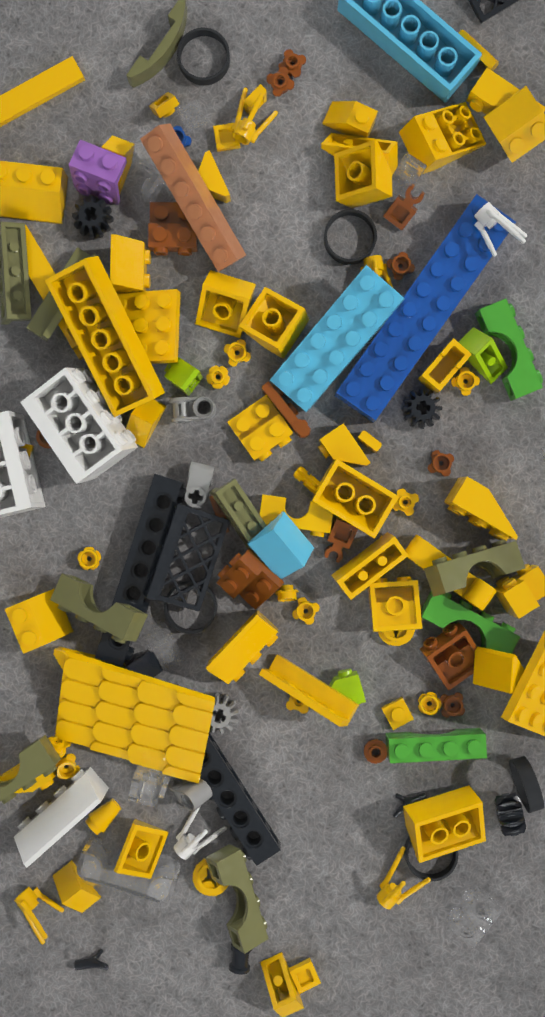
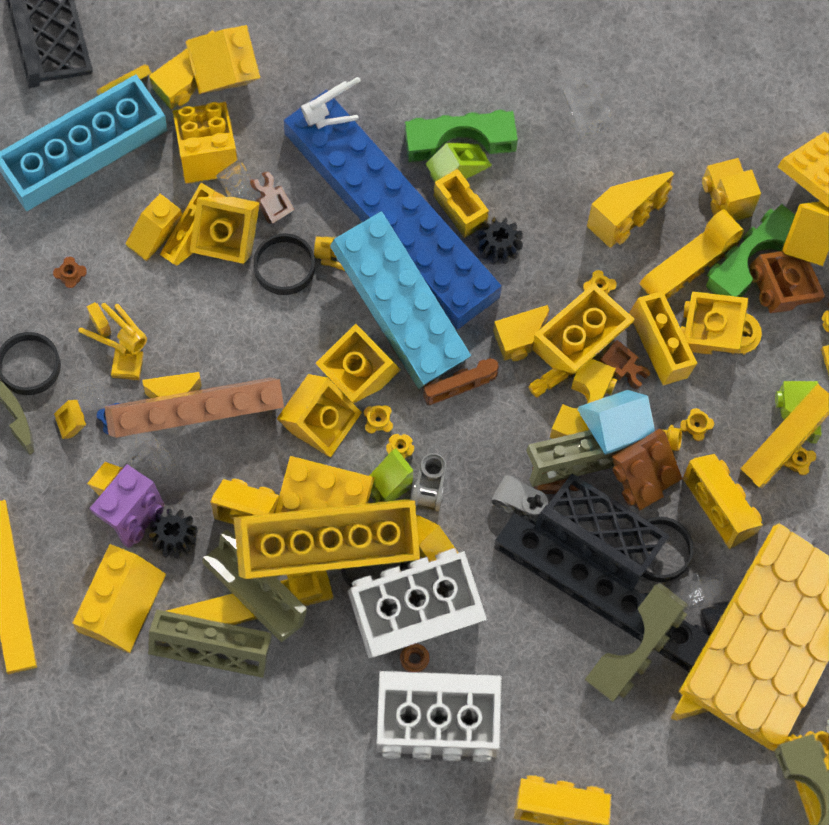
camera: 75 degrees left, 20 degrees down
(38, 621) = (634, 728): yellow slope -> none
(83, 561) = (577, 643): yellow plate -> none
(170, 230) = (213, 449): dark orange plate -> none
(261, 429) = (474, 415): yellow plate -> none
(279, 89) = (93, 293): dark orange plate -> none
(369, 441) = (522, 302): yellow tile -> none
(401, 258) = (332, 214): dark orange plate -> none
(447, 460) = (565, 230): dark orange plate -> none
(452, 574) = (696, 248): olive arch -> none
(470, 377) = (483, 182): yellow plate -> none

